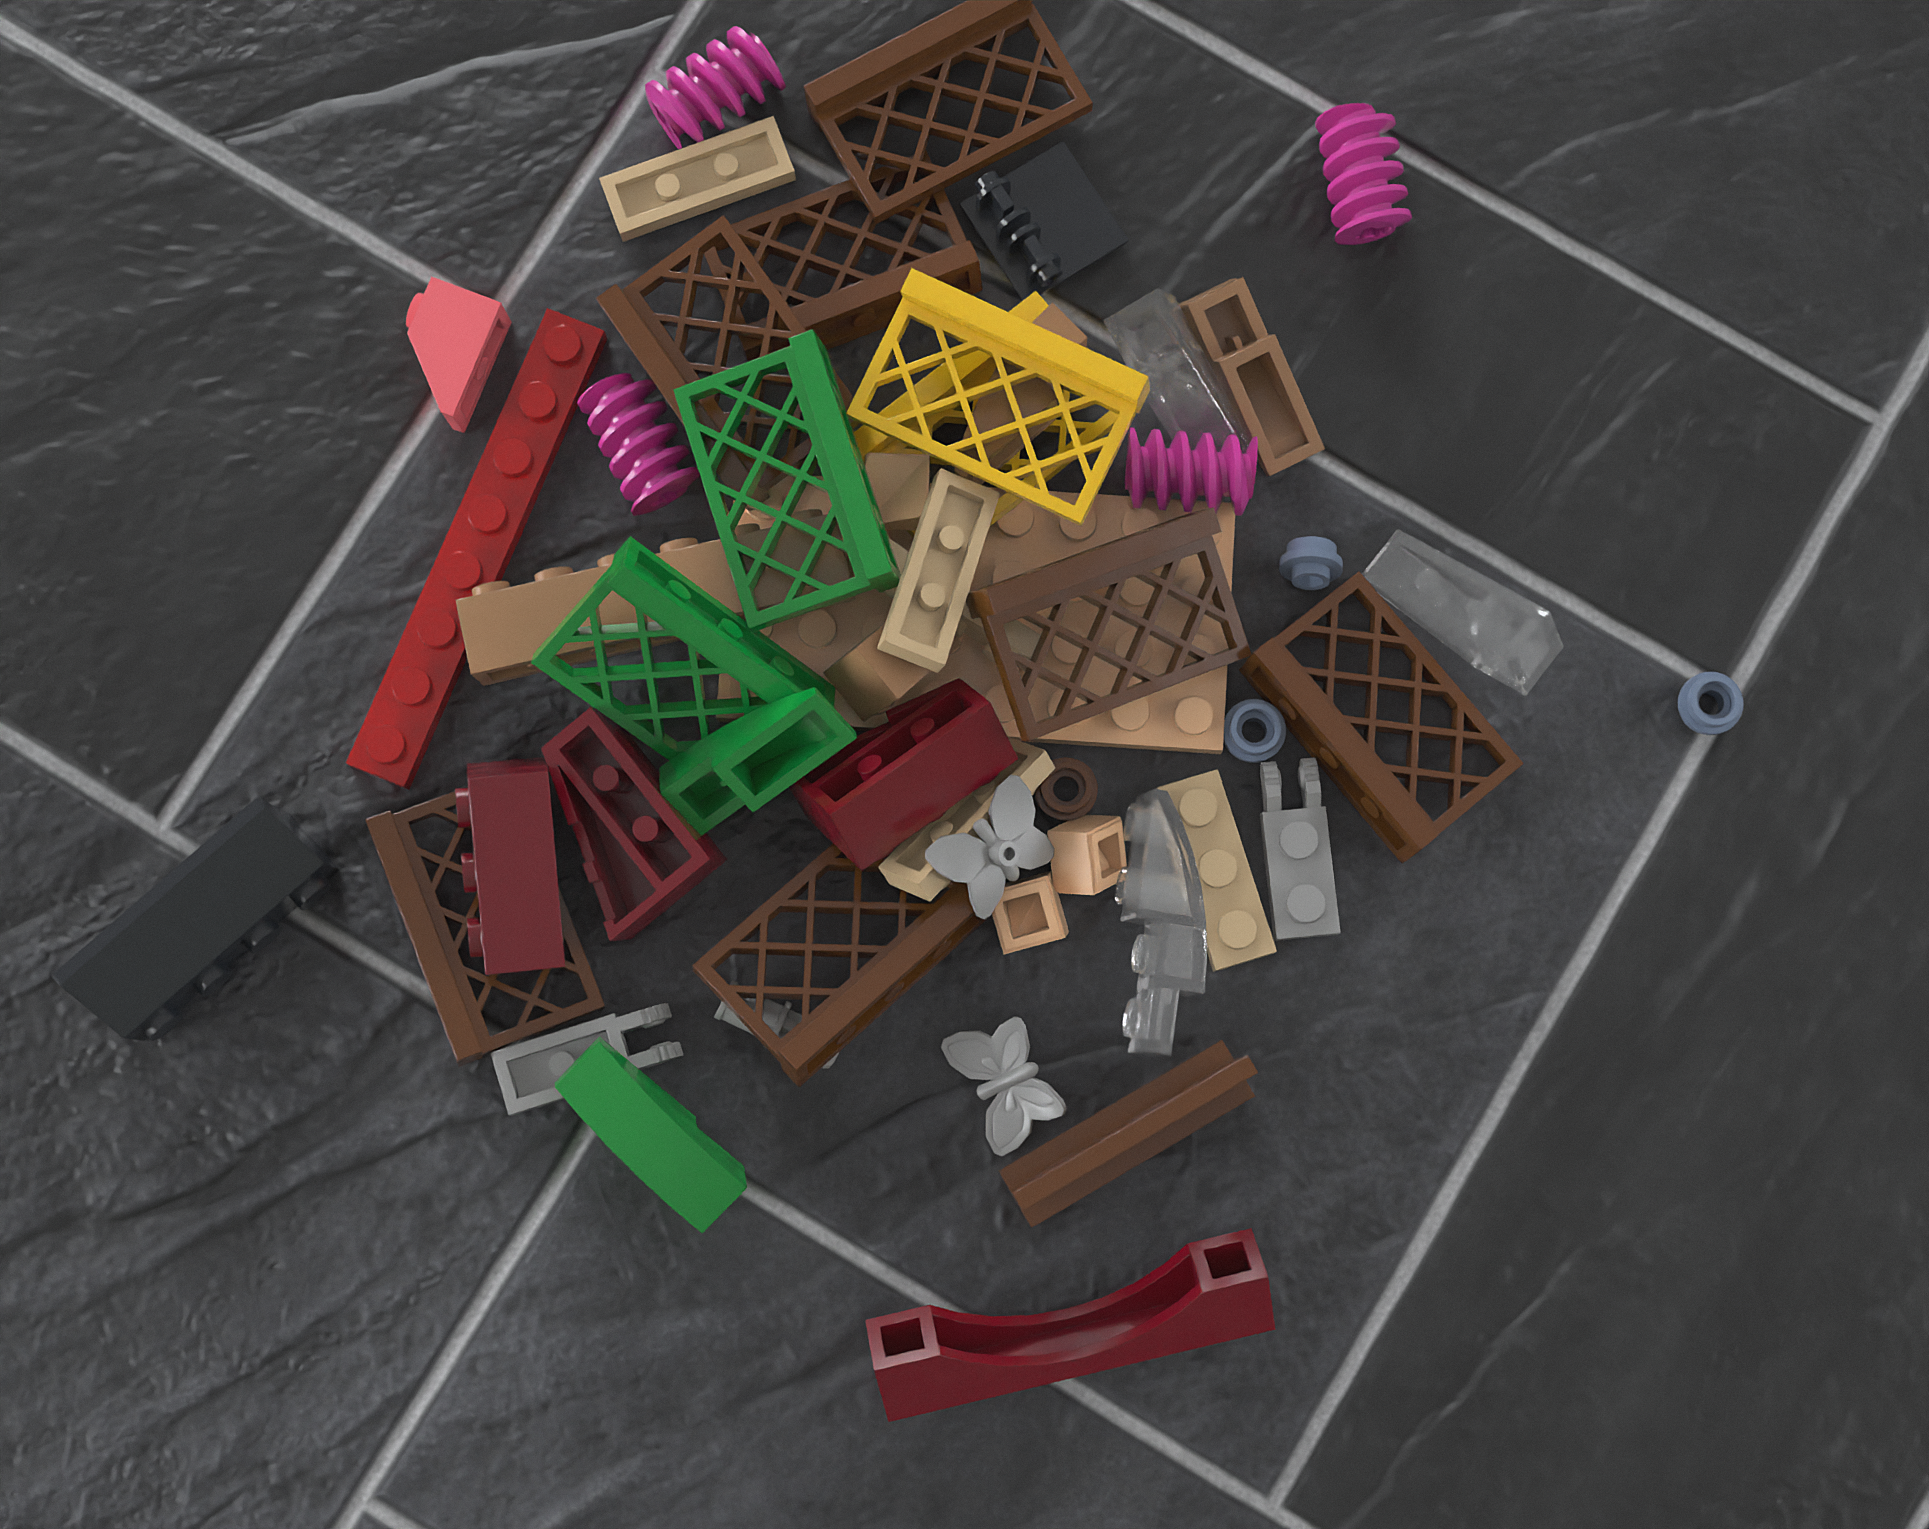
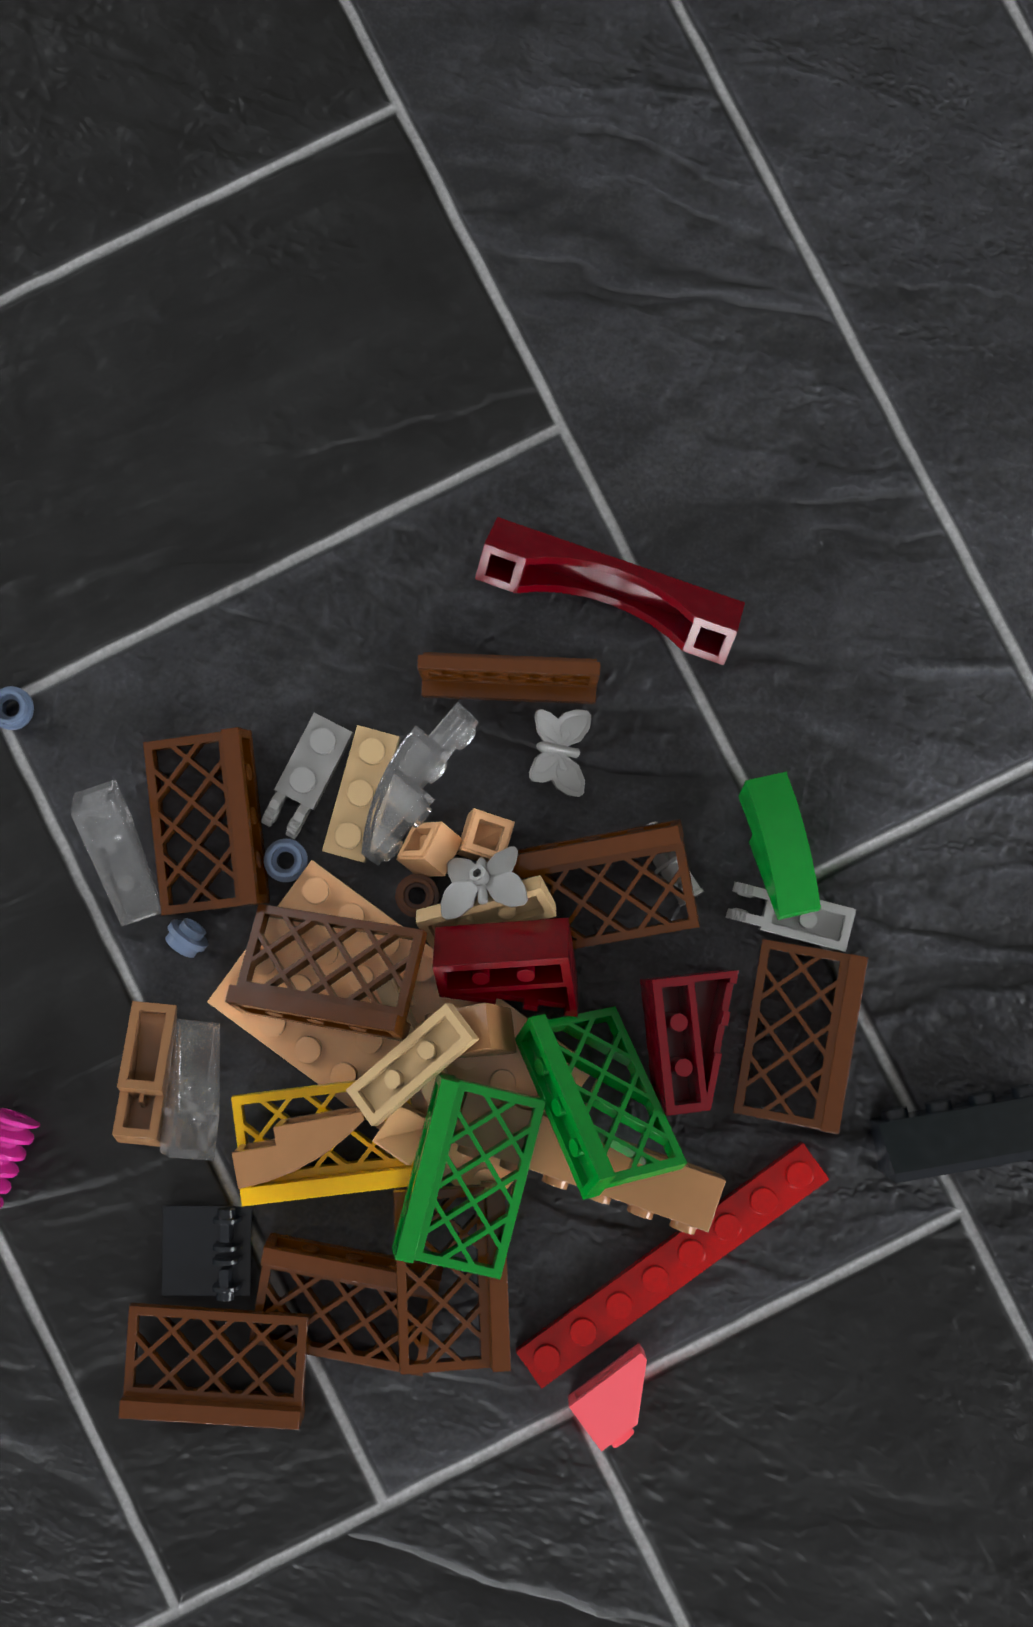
camera: 145 degrees left, 5 degrees up
(511, 866) = (768, 1052): dark red wedge -> none
(636, 442) = (539, 1266): dark pink piece -> none
(698, 178) = (399, 1413): tan plate -> none
(713, 85) = (353, 1467): dark pink piece -> none
(753, 758) = (590, 1023): green slope -> none
(1021, 345) = (277, 1171): yellow fence -> none
(1190, 471) = (222, 1035): dark pink piece -> none

